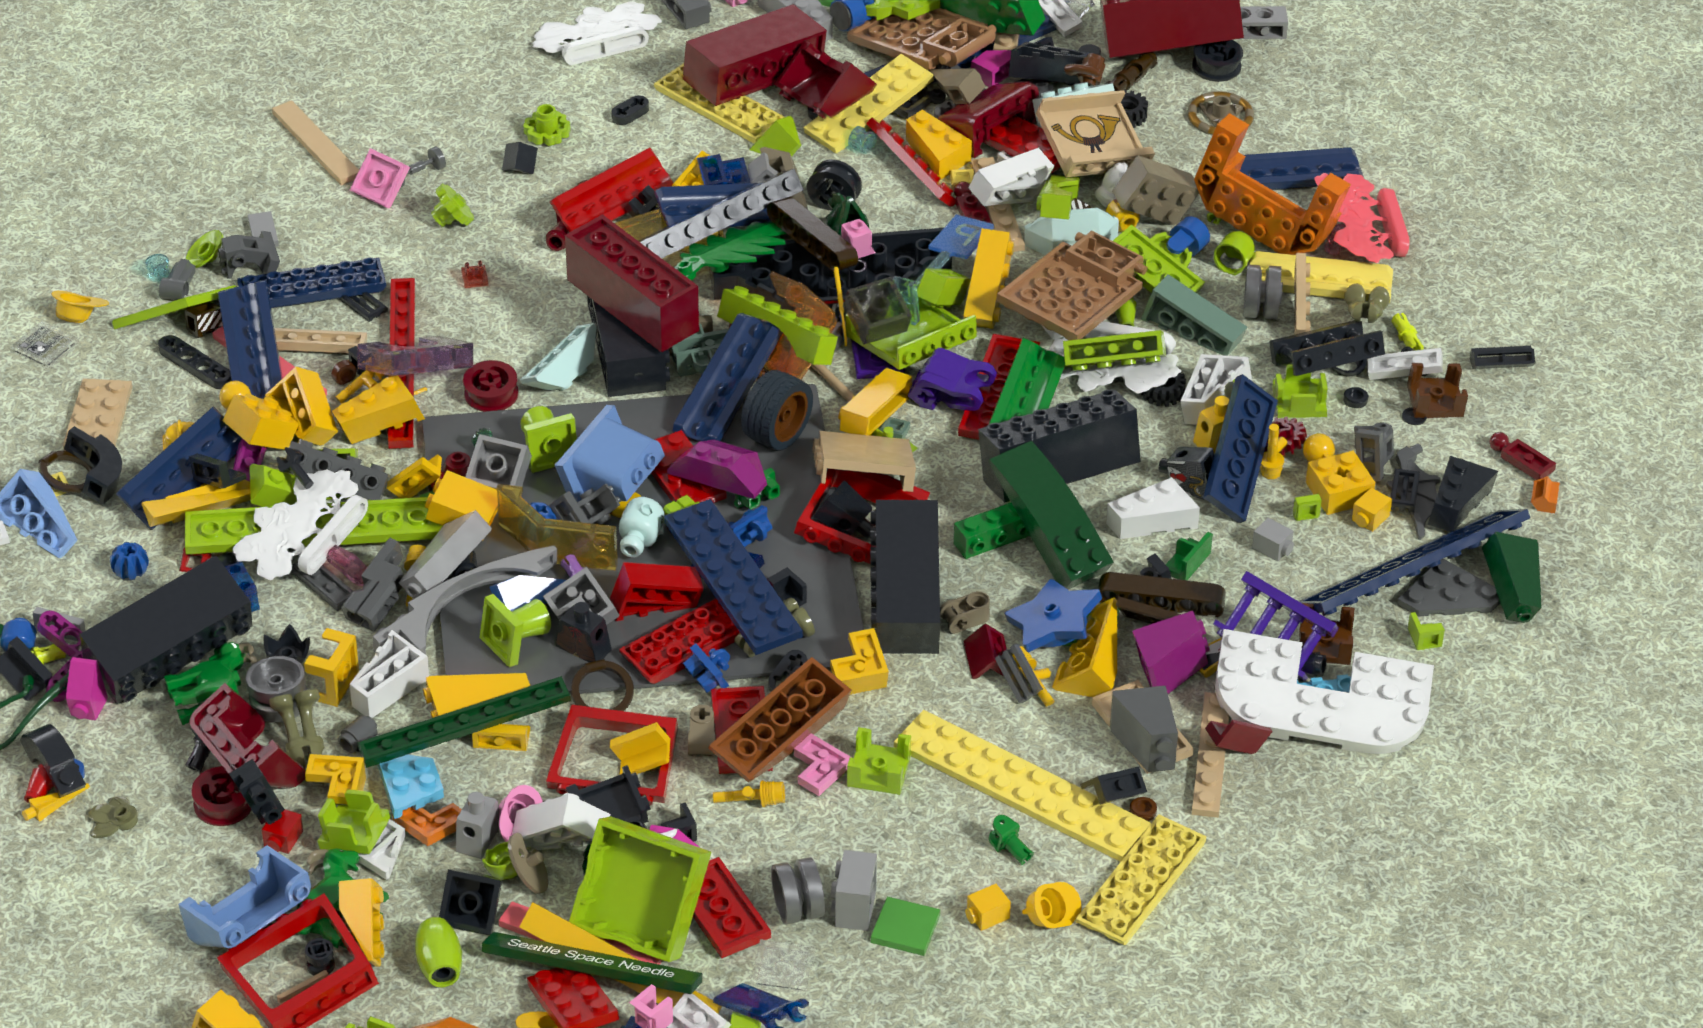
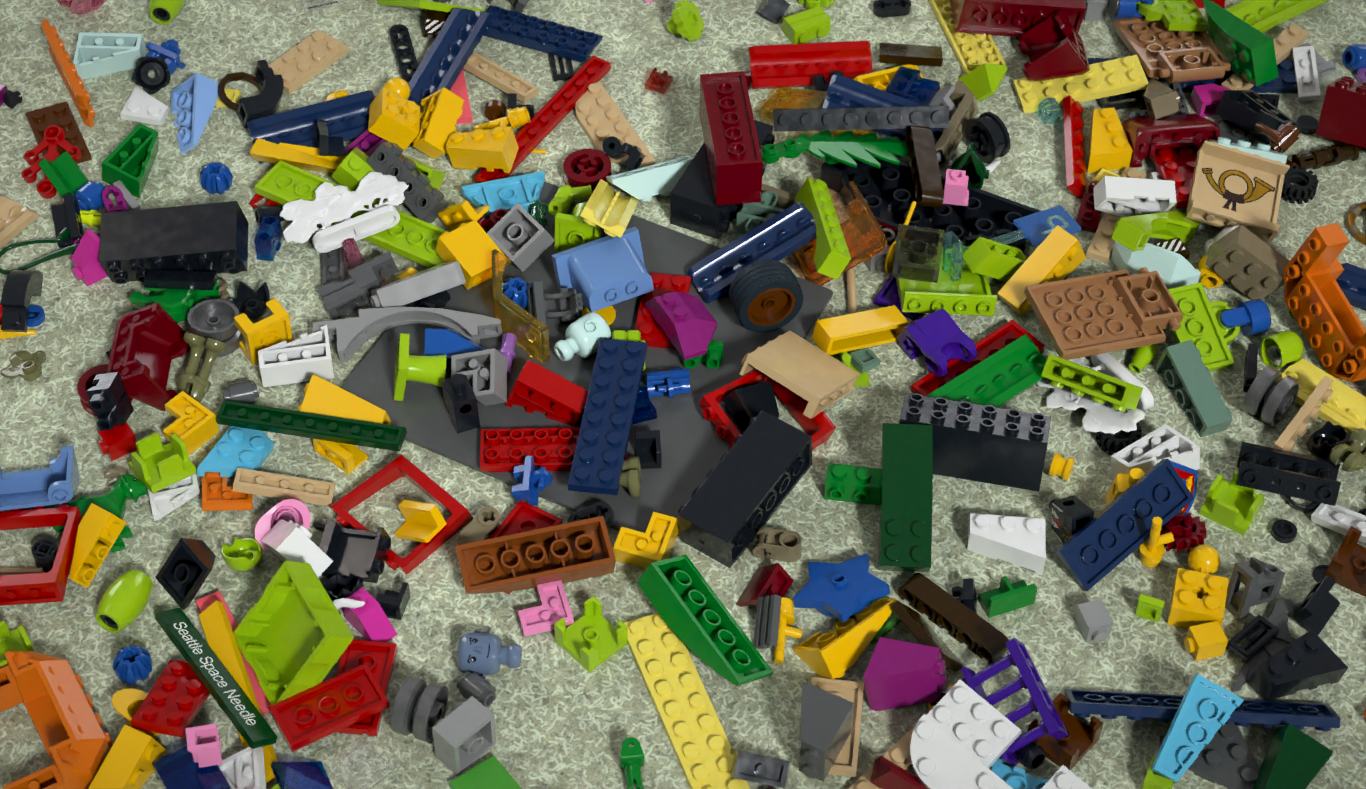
camera: 35 degrees right, 5 degrees up
(29, 582) = (132, 160): none -> green wedge
(206, 660) = (180, 279): none -> black tile
(294, 466) = (369, 158): black bar -> none
(431, 355) = (567, 130): clear purple arch -> none
(440, 436) = (506, 192): none -> medium azure wing
(477, 815) = (244, 511): light grey torso -> none
(487, 341) = (602, 118): none -> tan plate
(490, 784) = (284, 486): none -> tan plate
(497, 413) = (565, 196): none -> lime arm
(499, 997) = (132, 664): none -> blue piece
(503, 351) = (617, 149): none -> black leg
(528, 865) = (252, 574): dark tan piece -> none
(565, 402) = (609, 209): none -> light yellow plate
(569, 161) = (806, 25): none -> lime brick
(598, 666) = (447, 433): dark brown piece -> none
(691, 144) = (910, 54): none -> dark brown tile
(717, 931) = (329, 707): none -> red plate
(769, 794) = (481, 610): yellow piece -> none
(805, 823) = (484, 653): none -> sand blue piece
(824, 854) = (474, 685): none -> dark grey brick
(963, 699) = (702, 620): none -> green slope
(1146, 433) = (1061, 466): none -> yellow wheel
(1221, 279) = (1250, 366): none -> black tile
(1332, 308) = (1326, 438): none -> black hair
(1427, 564) = (1194, 726): none -> medium azure wing
(1431, 439) = (1317, 606): none -> black panel

